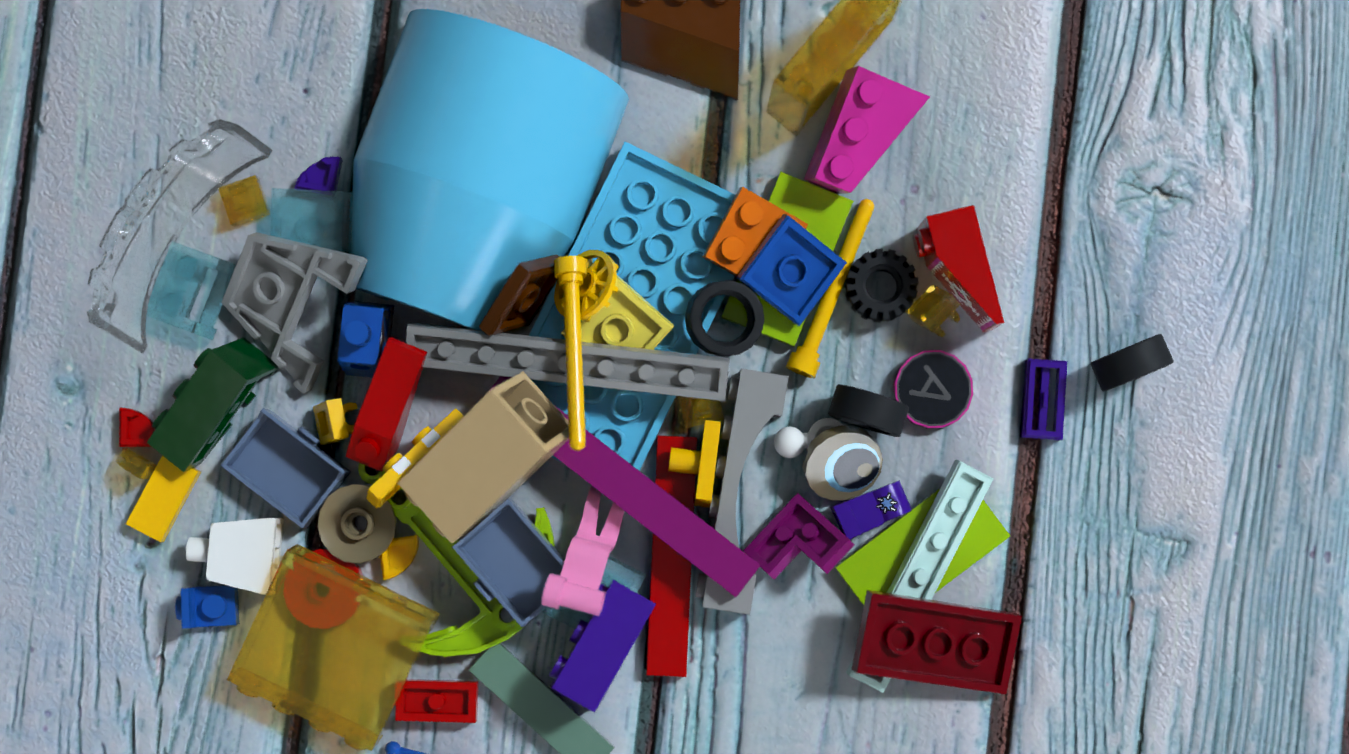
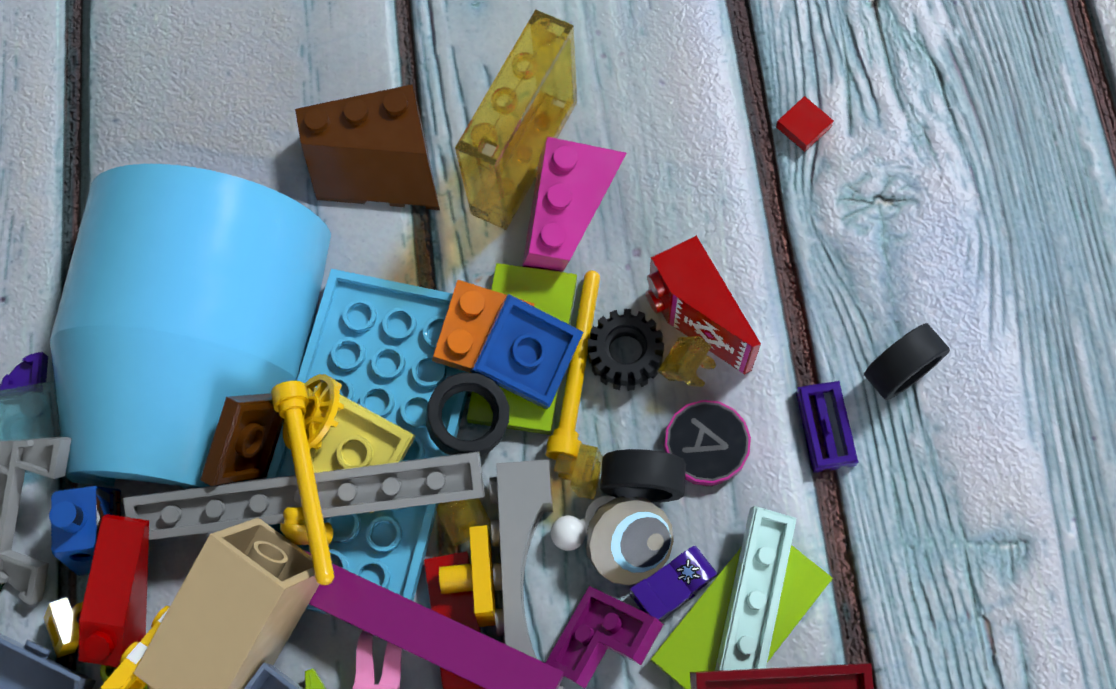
camera: 10 degrees left, 15 degrees down
(556, 387) = (295, 529): none -> yellow arm
(816, 390) = (581, 471): none -> clear yellow tile
(1108, 97) = (804, 123): none -> red tile

